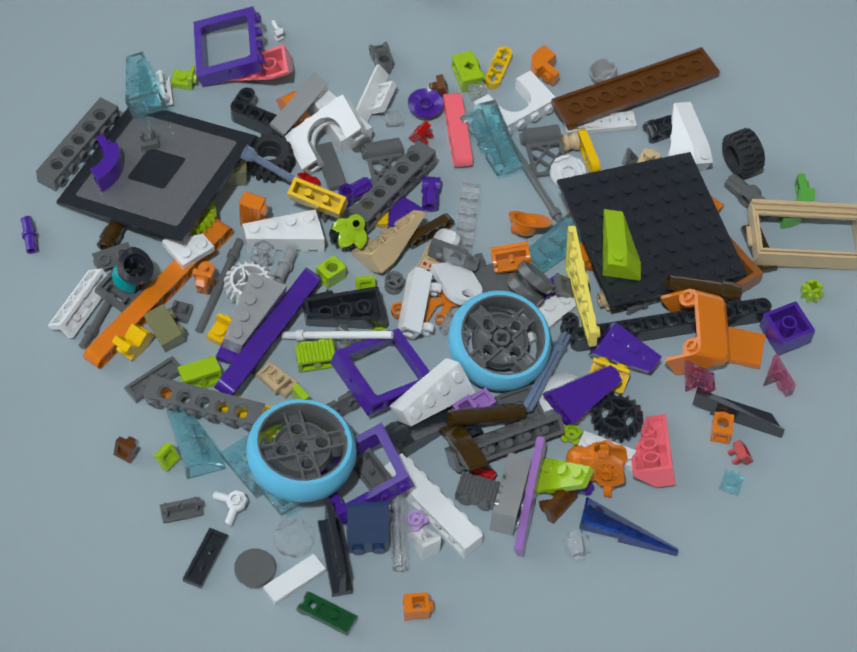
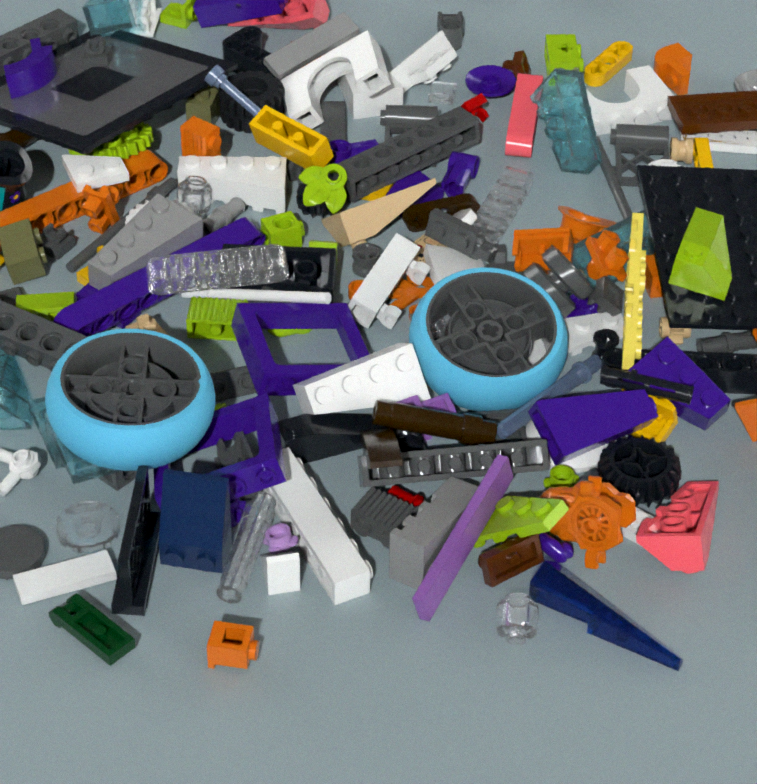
camera: 20 degrees right, 15 degrees down
(308, 323) = (216, 269): none -> clear beam
(555, 260) = (606, 257): none -> orange hips
(610, 359) = (611, 376): none -> black pin

